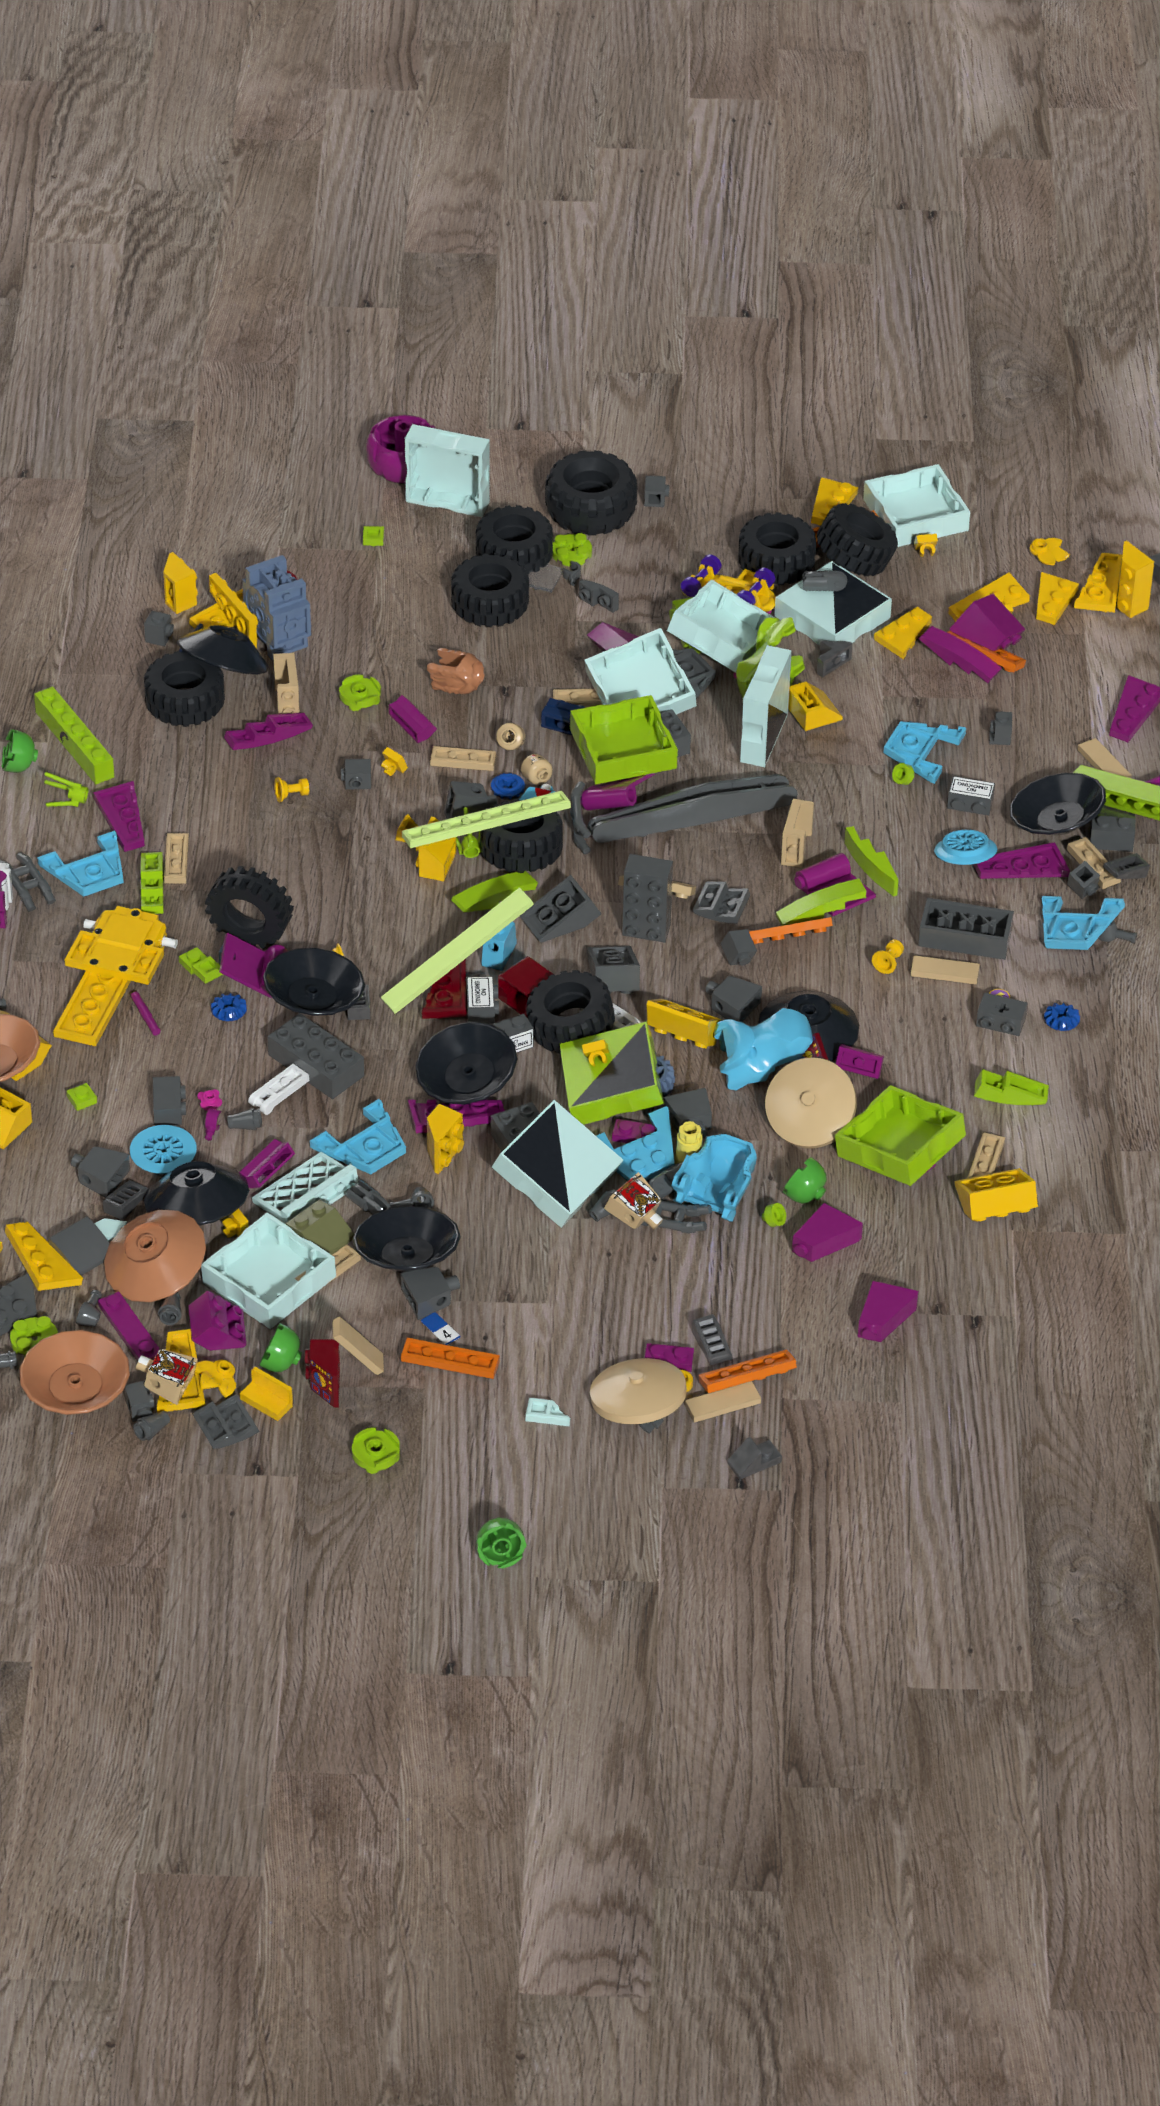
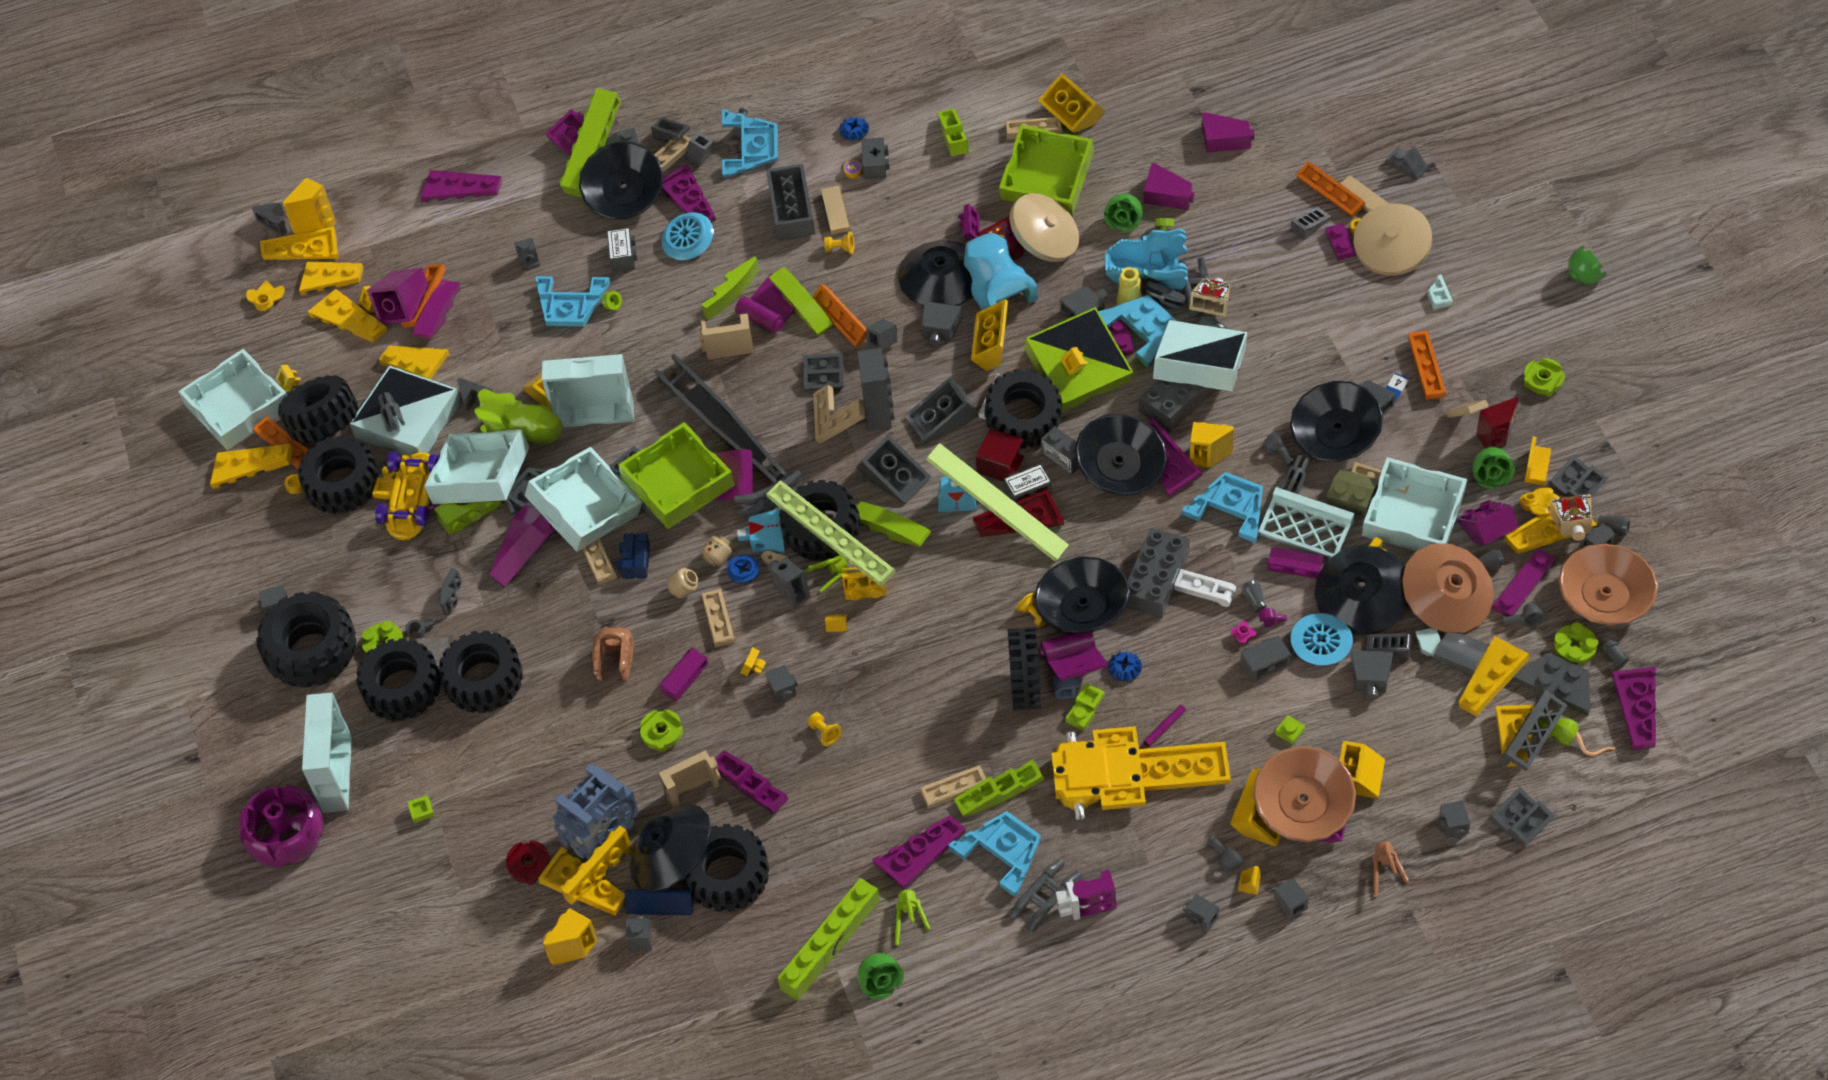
camera: 105 degrees left, 10 degrees up
(1101, 758) = (537, 185): tan tile -> none

